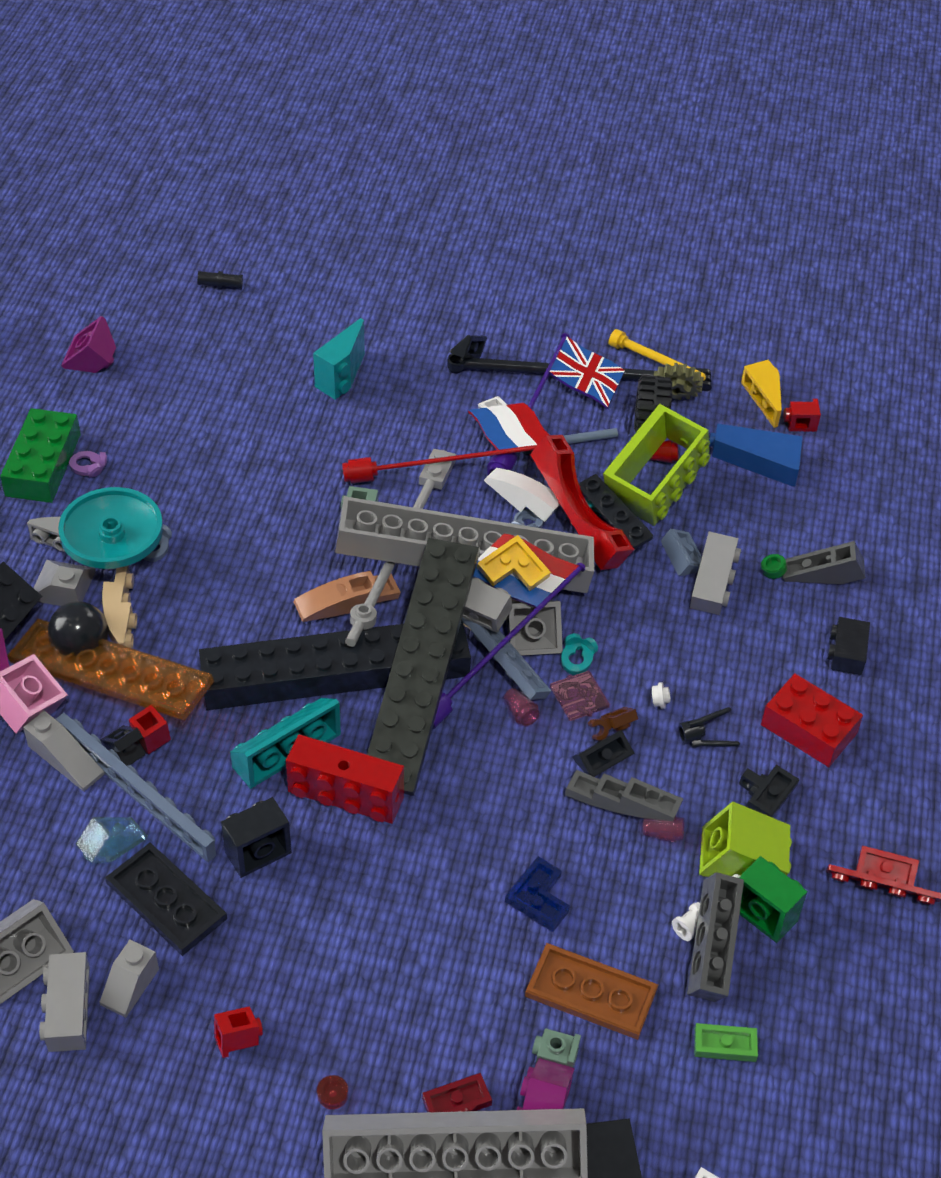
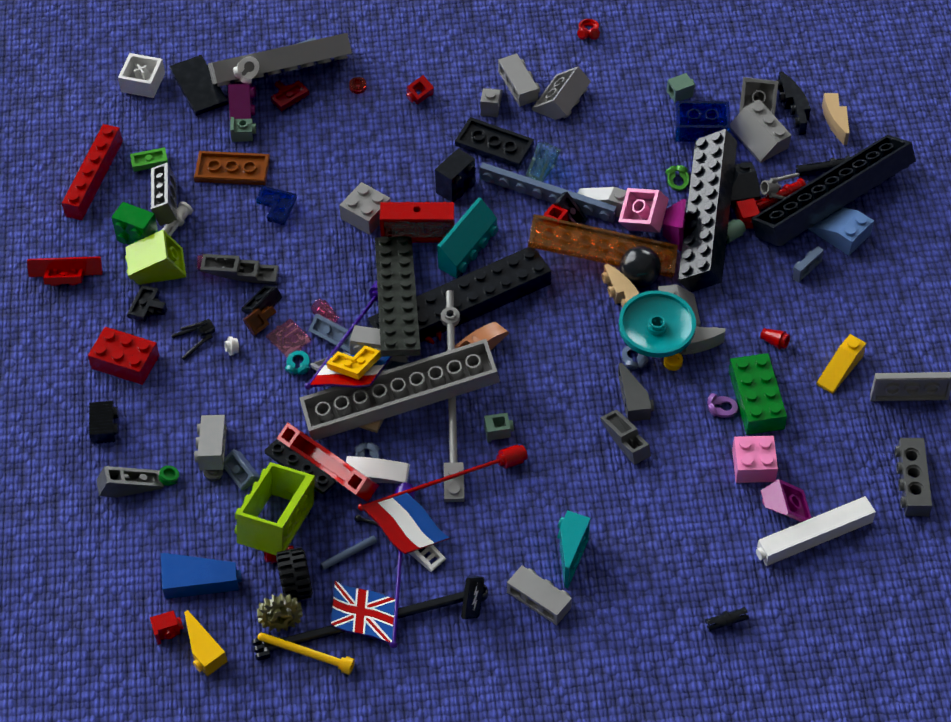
camera: 165 degrees right, 5 degrees up
(69, 320) = (815, 531): none -> white brick
(93, 394) = (754, 459): none -> bright pink brick
(185, 488) = (634, 396): none -> dark grey slope
(218, 457) = (626, 436): none -> dark grey slope
(396, 342) = (539, 594): none -> light grey brick
(409, 838) = (363, 208): none -> light grey brick
(532, 1098) = (249, 75): none -> white piece
(823, 1042) = (92, 172): none -> red brick

